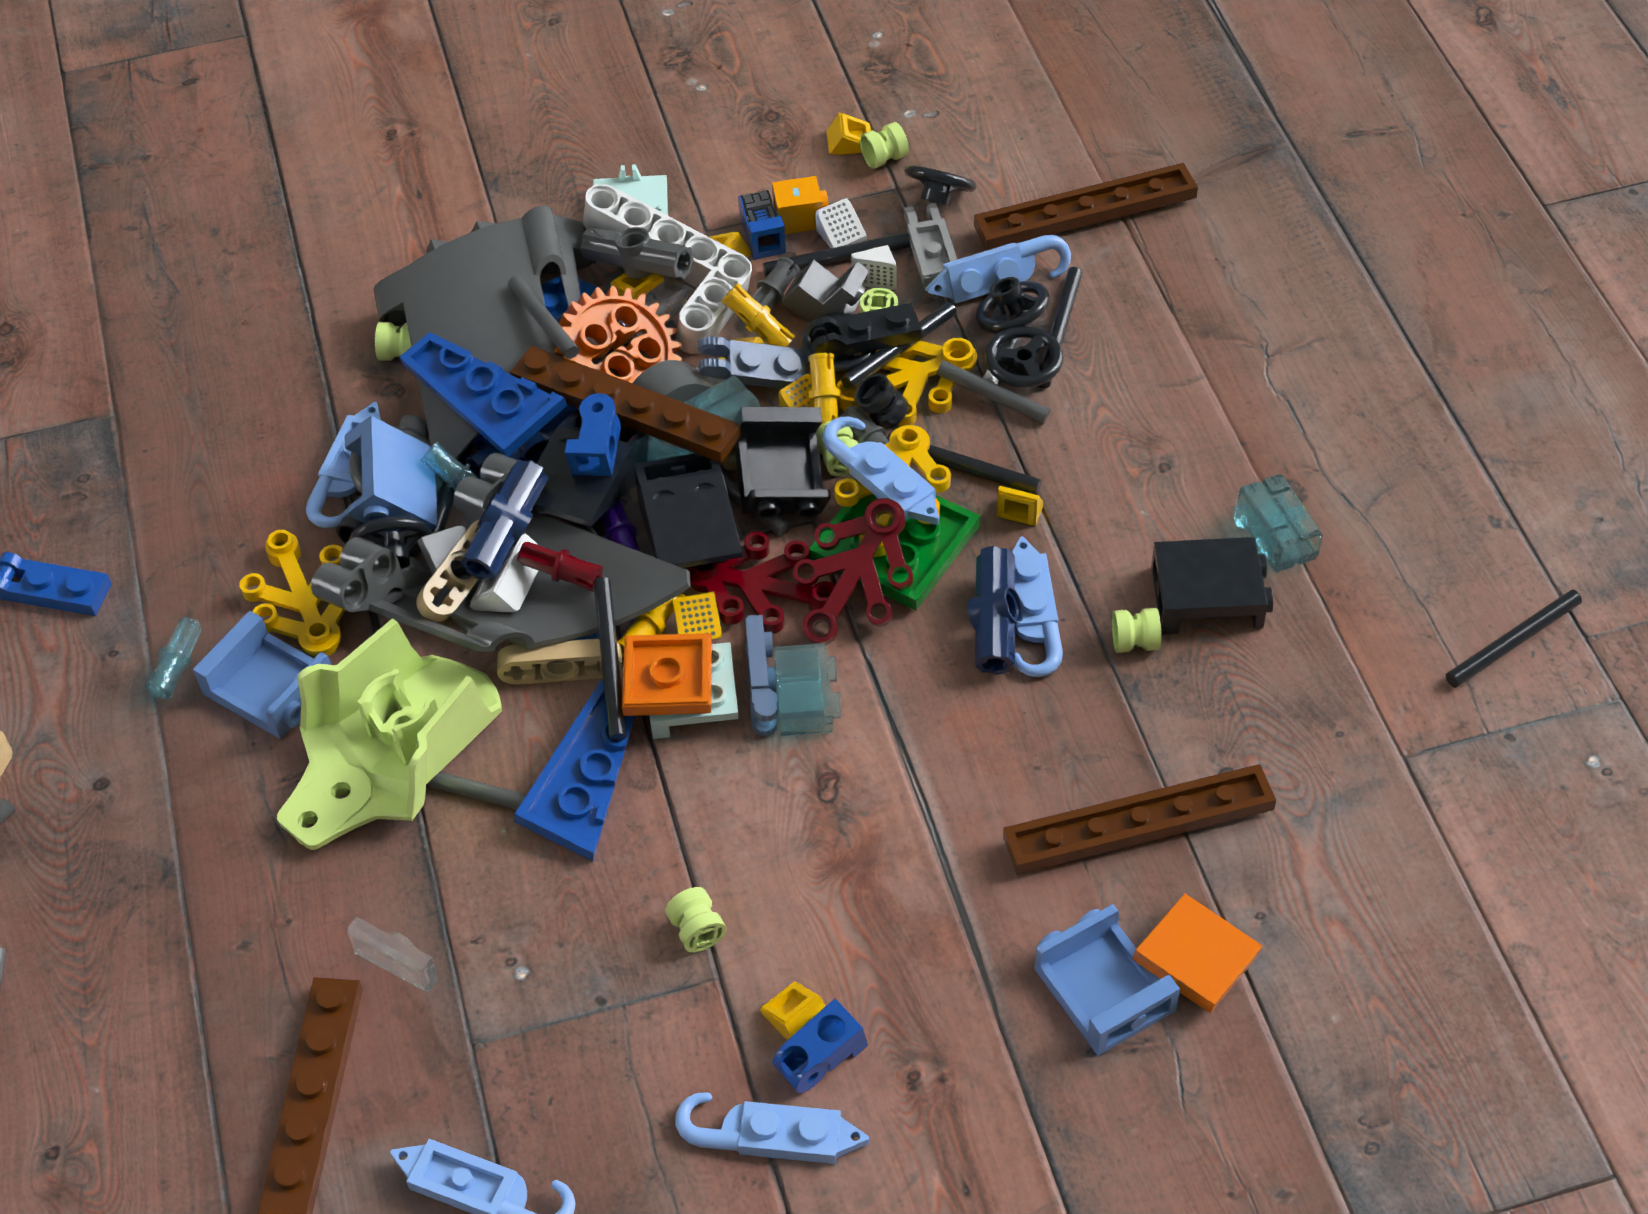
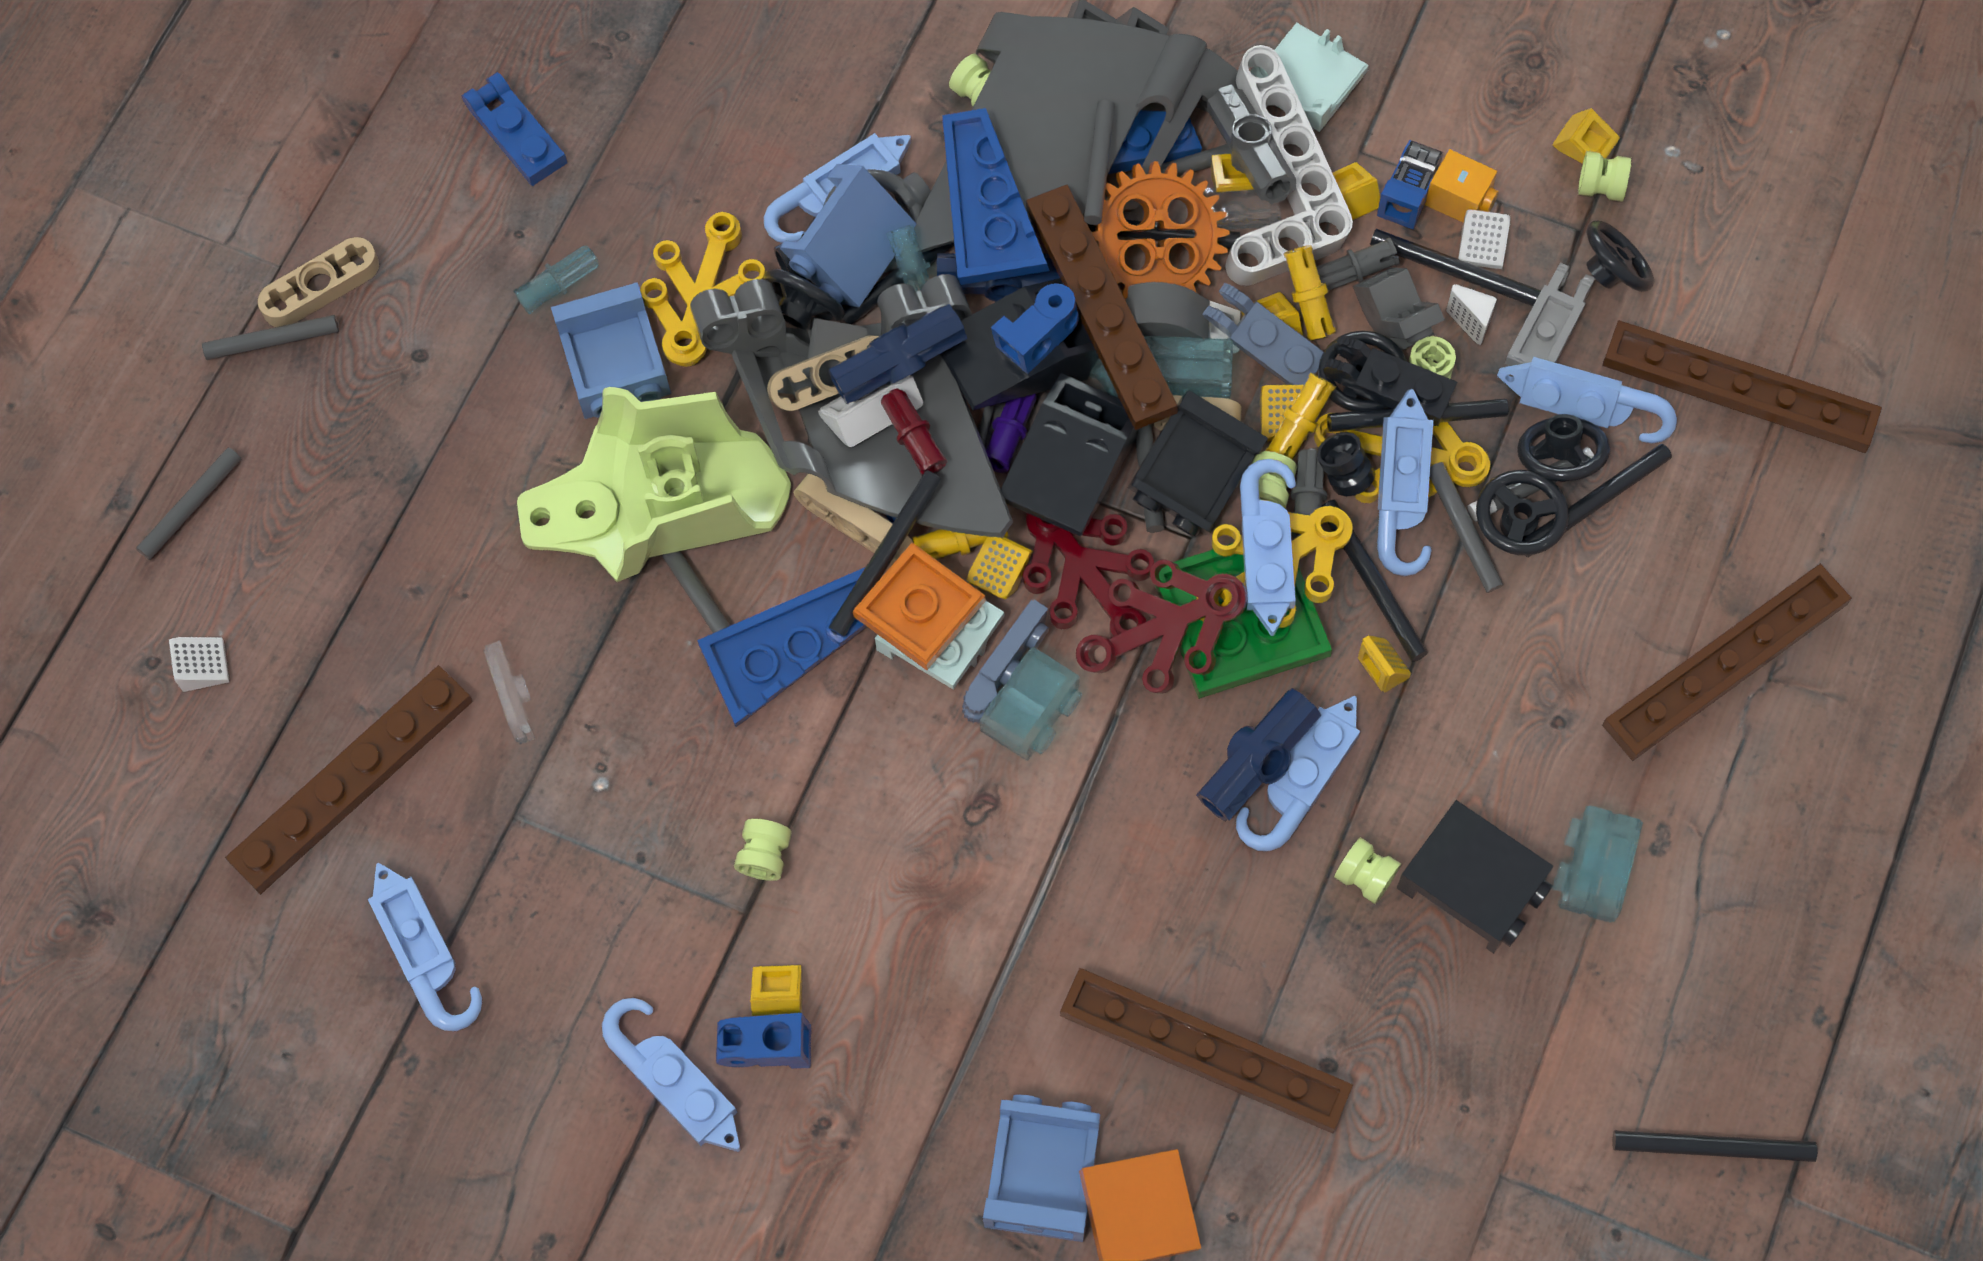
camera: 40 degrees right, 15 degrees up
(98, 1120) = (198, 662): none -> white slope
(930, 383) = (1404, 481): none -> light blue plate
(1234, 361) = (1726, 662): none -> reddish brown plate

